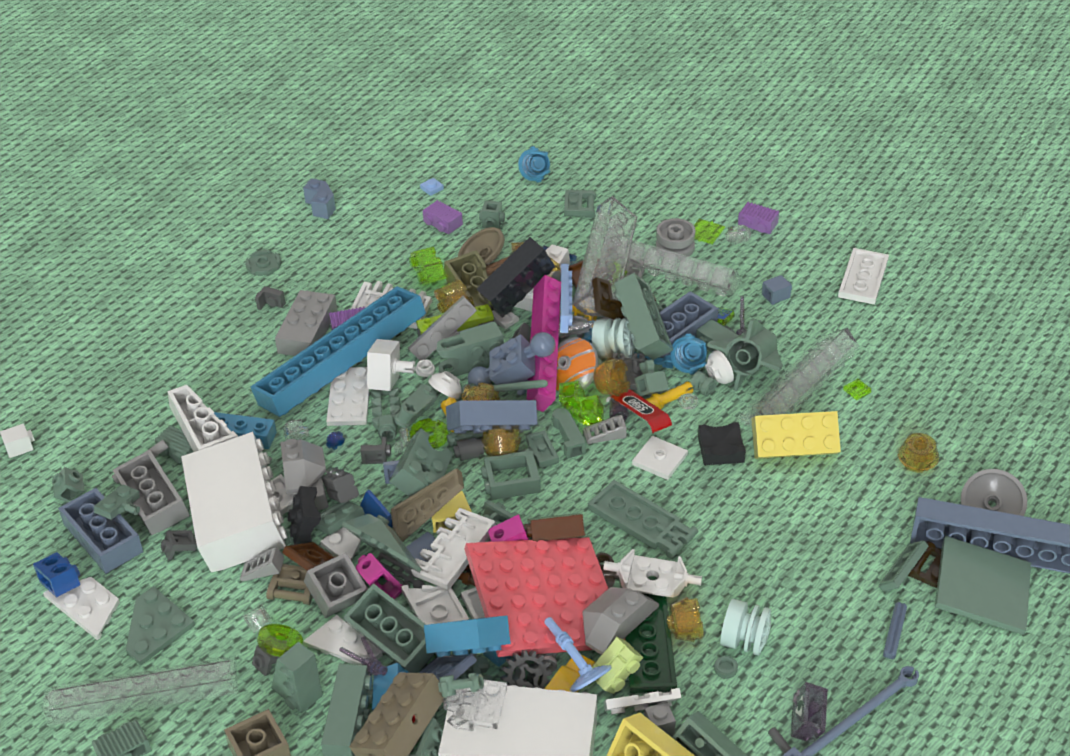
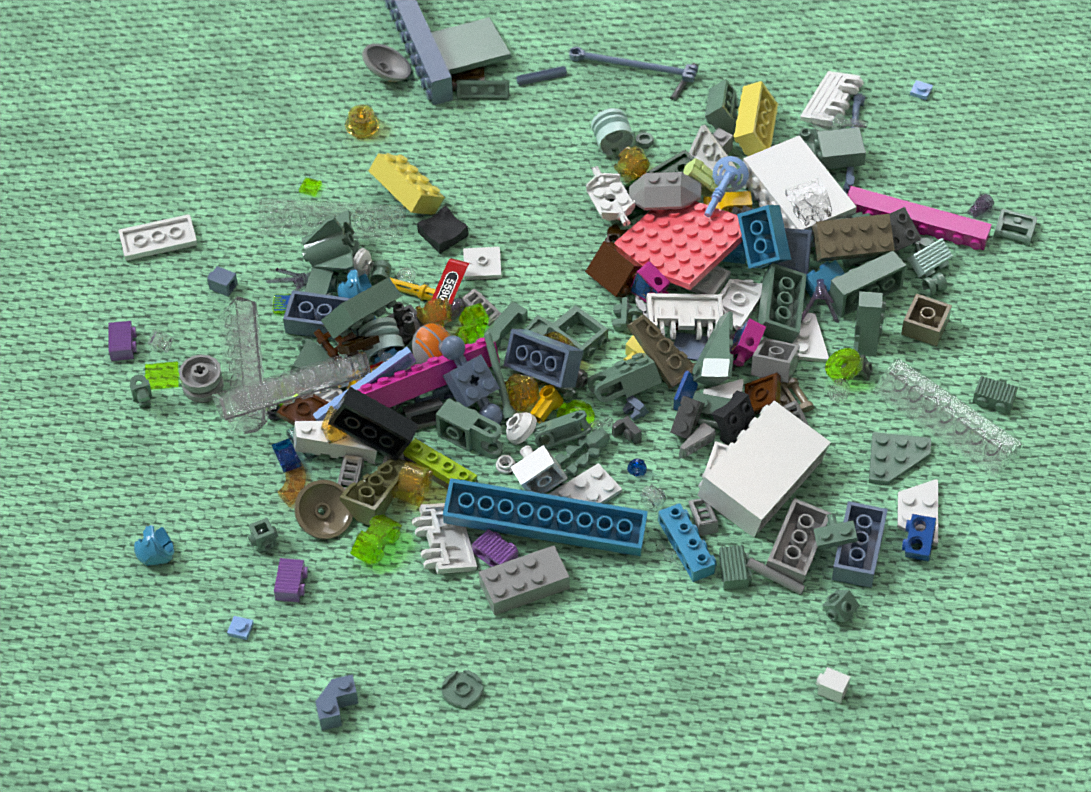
camera: 125 degrees left, 10 degrees up
(178, 541) = (822, 492): dark grey bracket -> none
(197, 420) = (720, 533): white wedge -> none
(271, 297) = (512, 641): dark grey bracket -> none
(301, 464) = (686, 461): light grey wedge -> none
(442, 328) = (465, 456): light grey plate -> none
(448, 685) = (811, 217): sand green bar -> none
(573, 203) = (188, 491): sand green plate -> none
(641, 518) = (555, 241): sand green hinge -> none
(650, 381) = (414, 294): sand green brick -> none
(692, 204) = (141, 392): none -> sand green hips
(809, 712) = (651, 79): brick -> none

